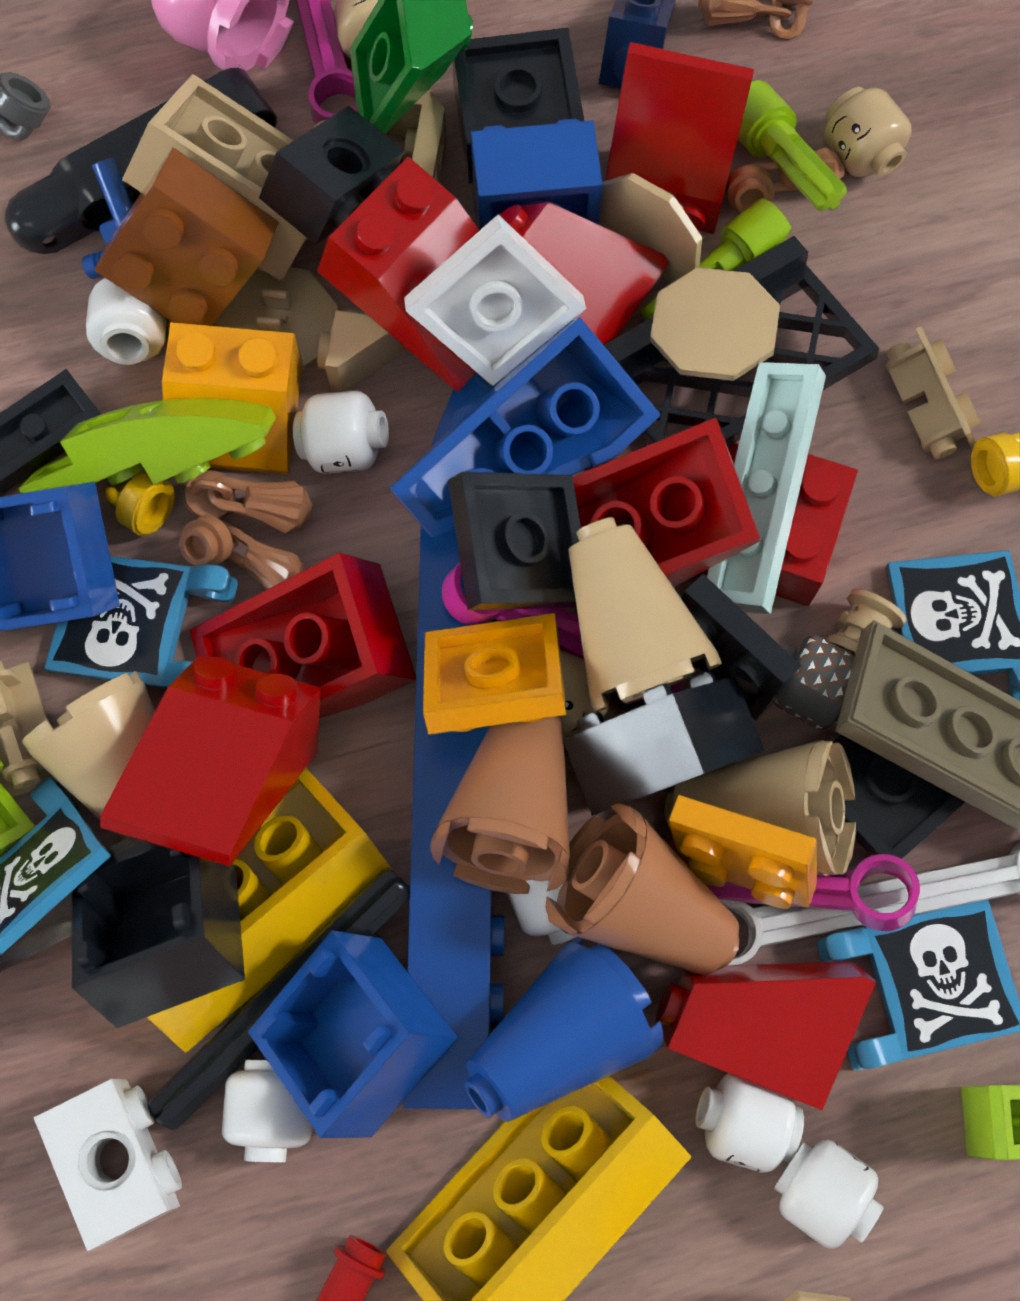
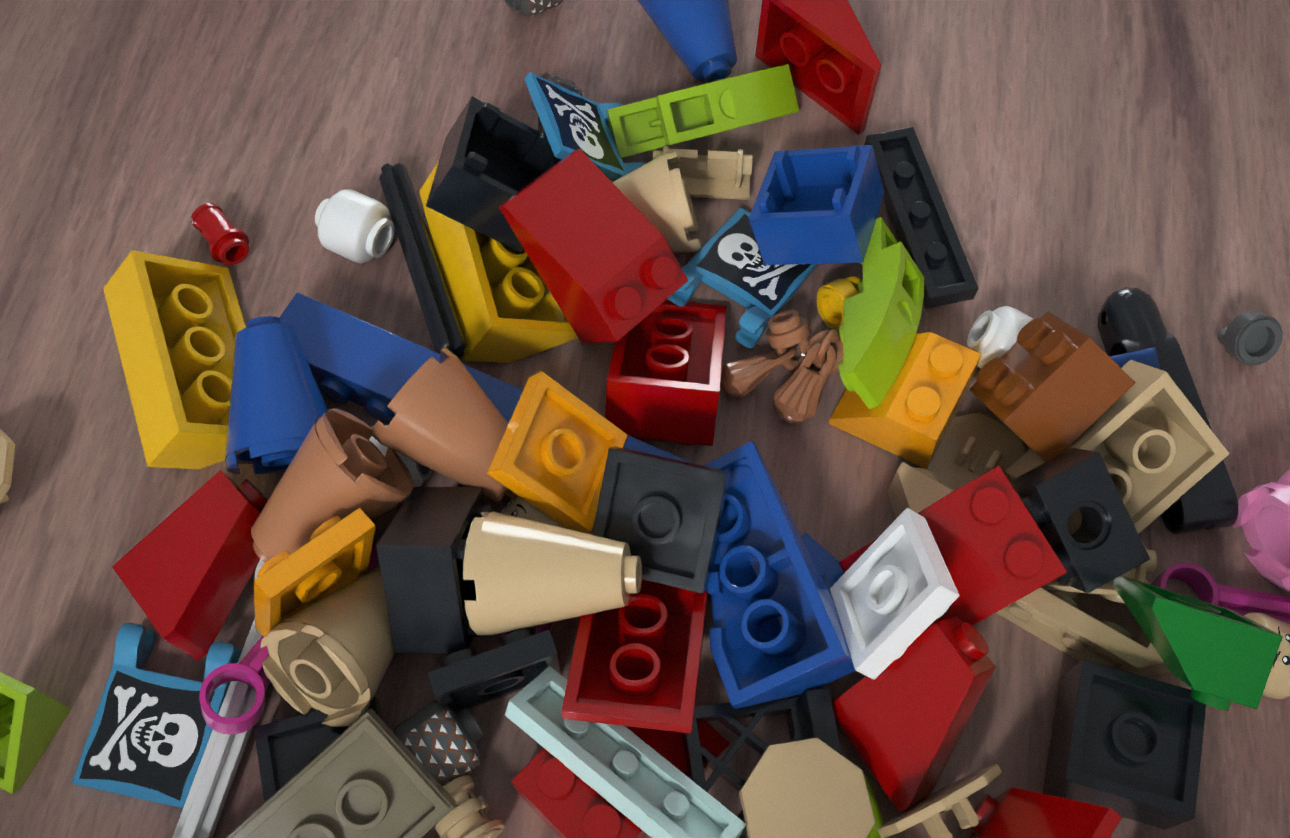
camera: 115 degrees right, 10 degrees down
(74, 1141) = (378, 129): white brick -> none
(340, 432) = (843, 460): white head -> none
(351, 1035) = (361, 274): blue container -> none
(536, 167) = (1024, 711): blue container -> none
(749, 1124) = (137, 515): white head -> none
(829, 1194) = (61, 555): white head -> none

